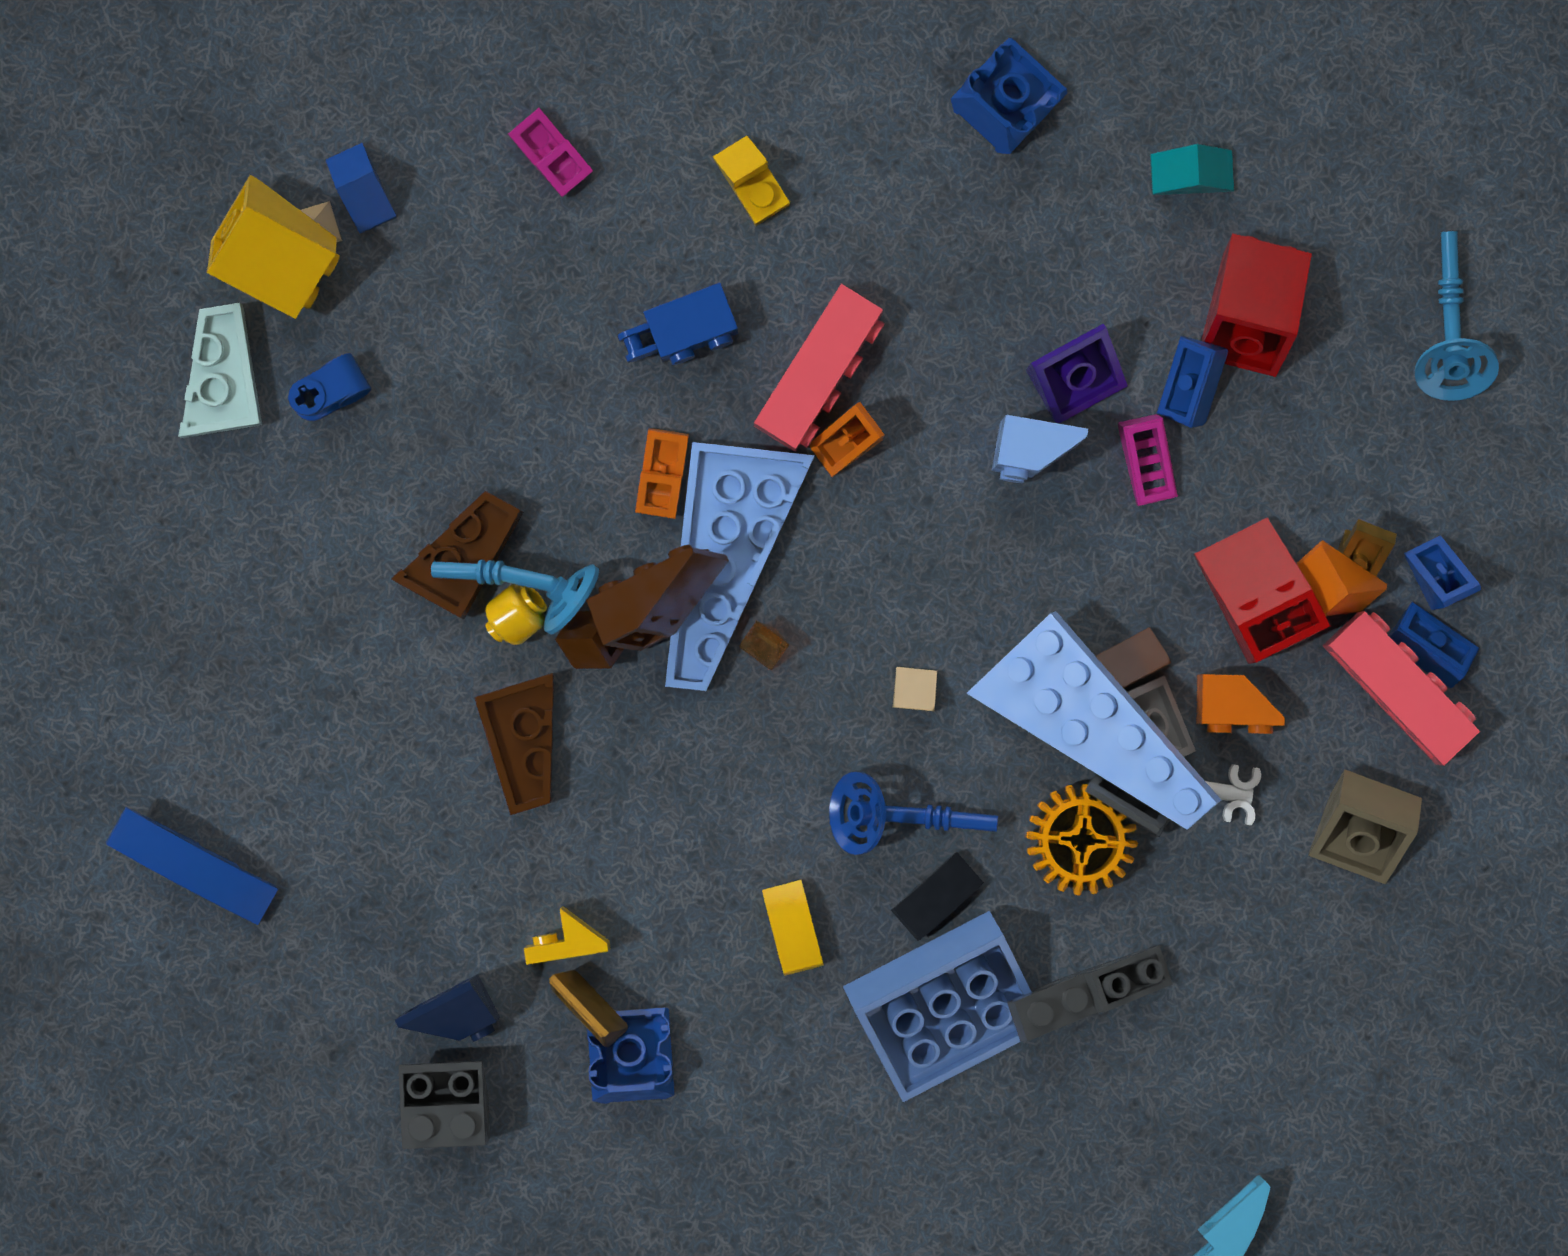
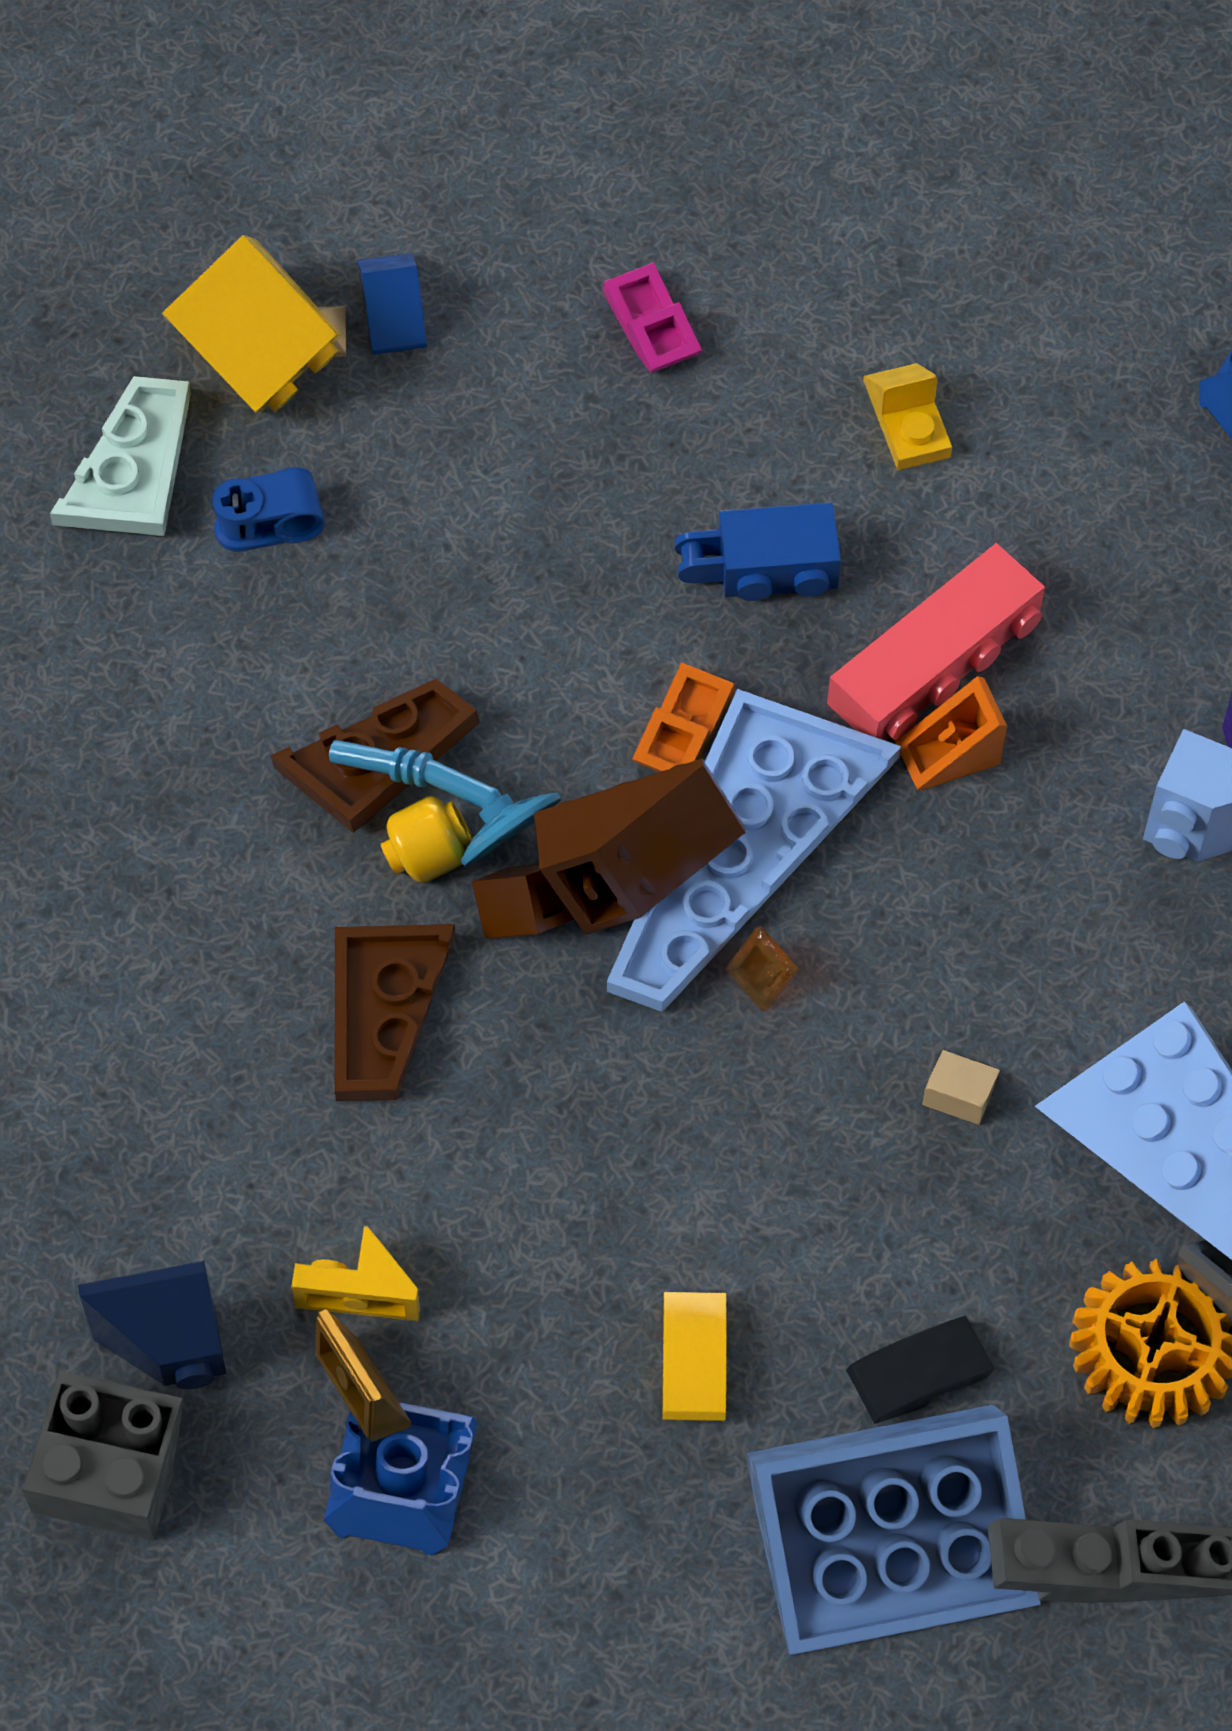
camera: 15 degrees right, 25 degrees down
(876, 812) = (855, 1224): blue dish -> none

